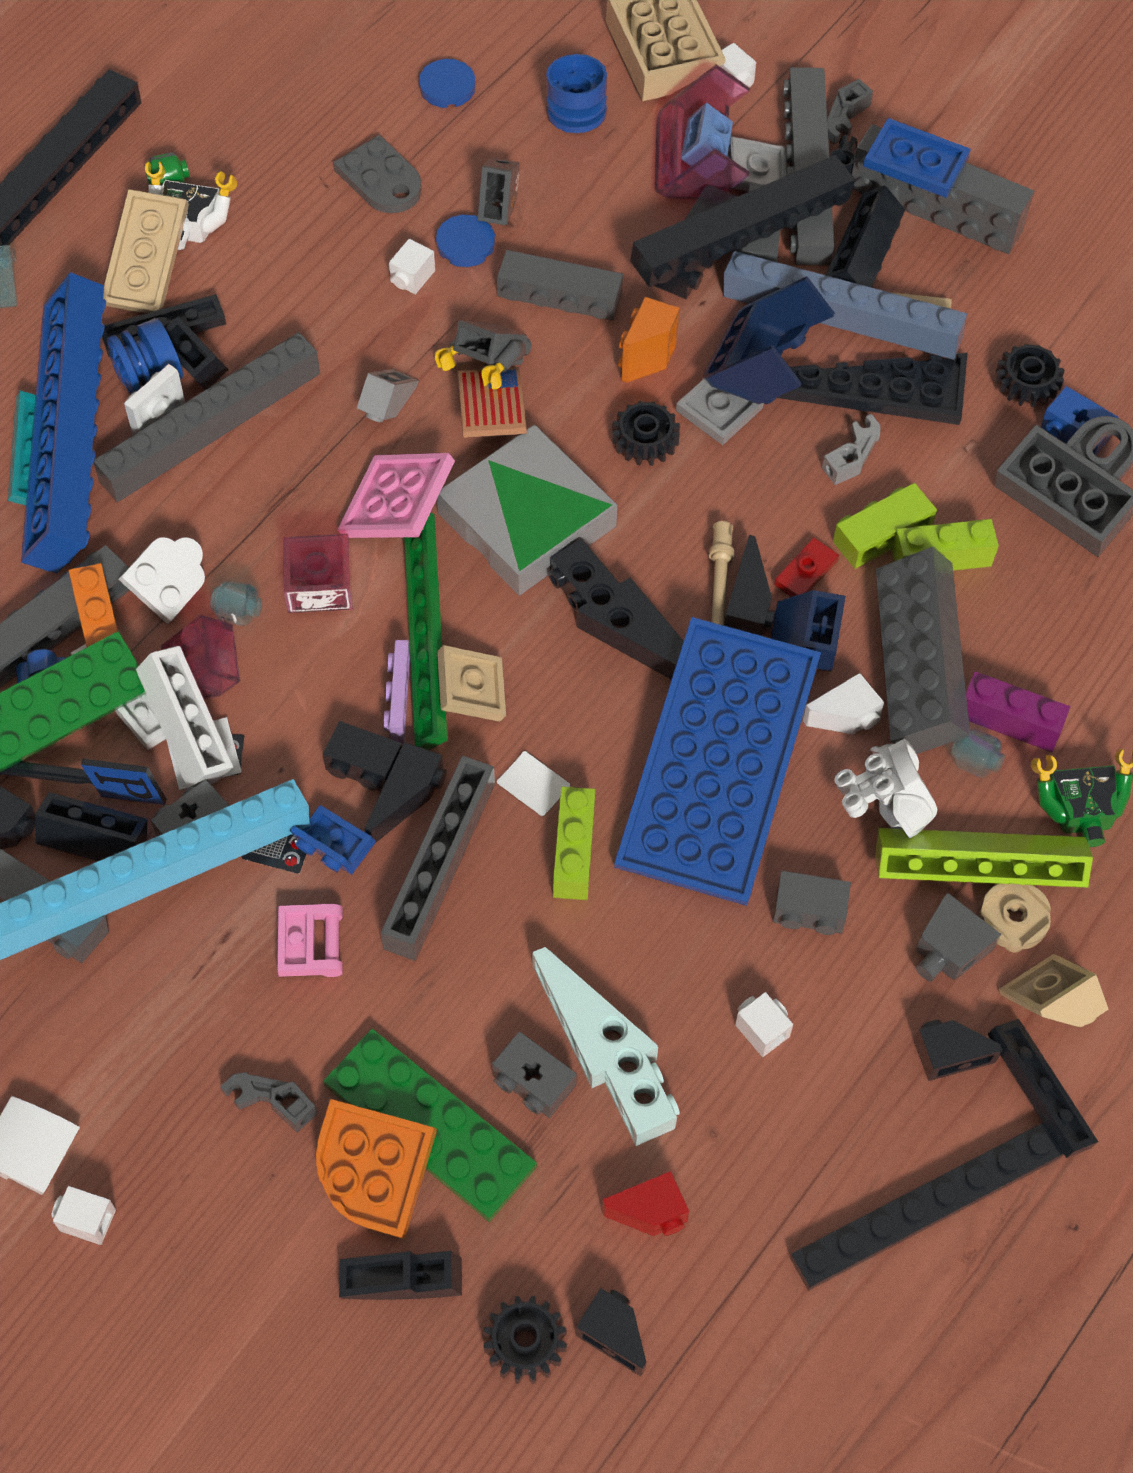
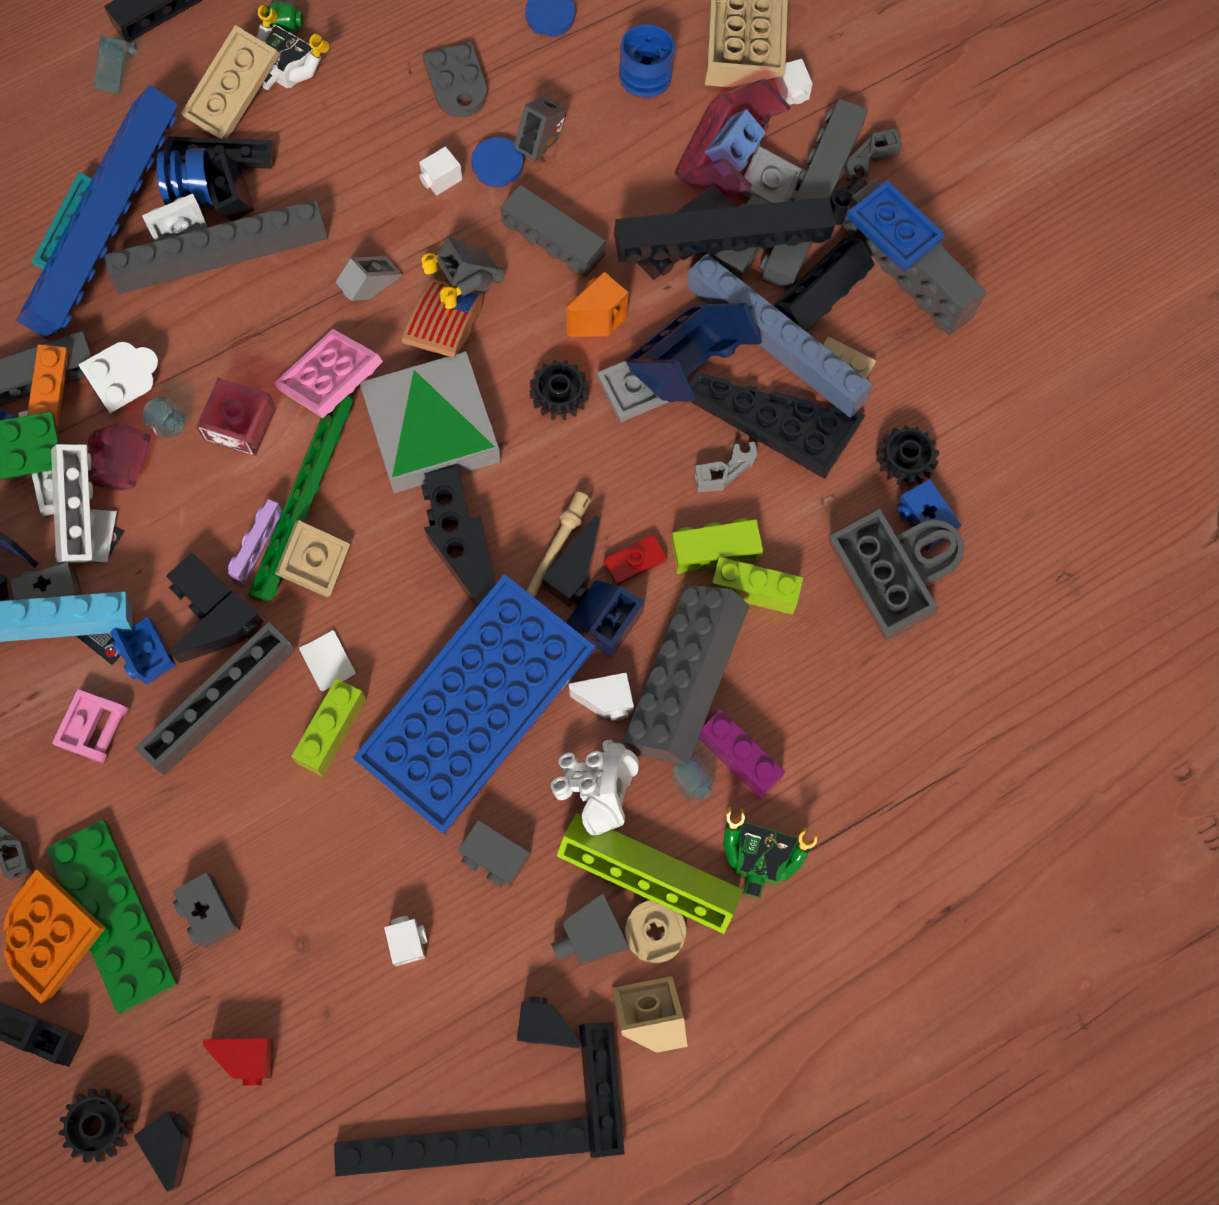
camera: 20 degrees right, 10 degrees up
(585, 1020) = (265, 882): light aqua brick -> none

